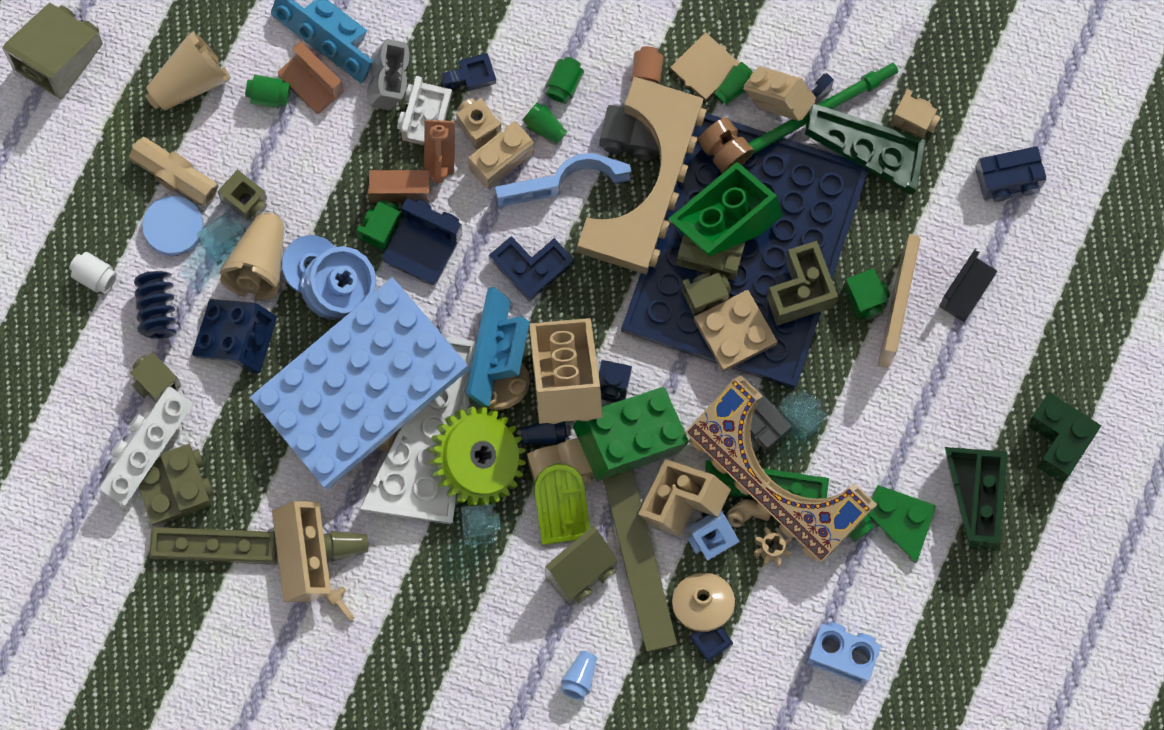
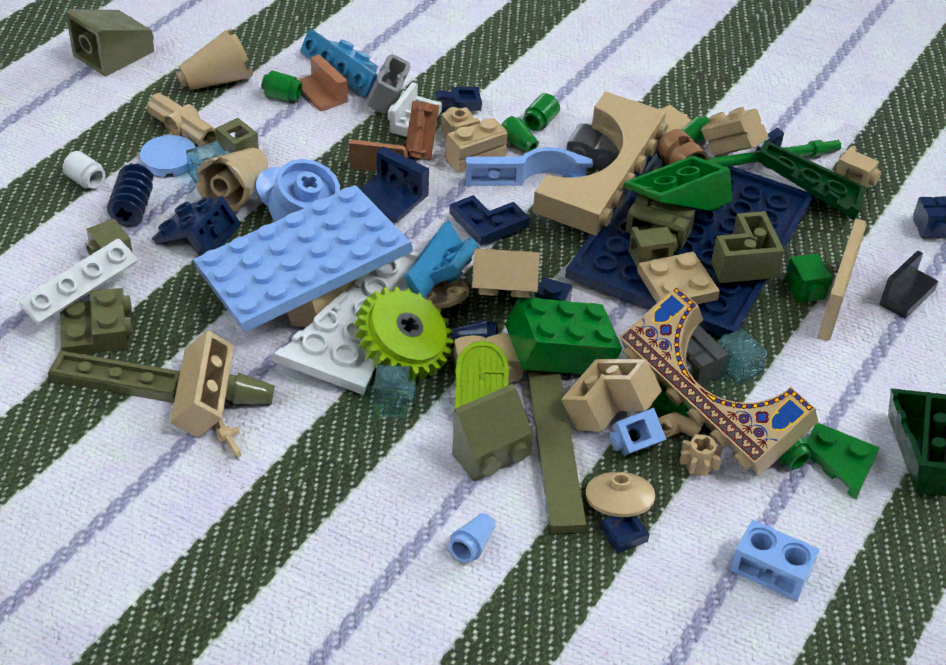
camera: 10 degrees right, 30 degrees down
(380, 225) = (354, 171): green brick -> none

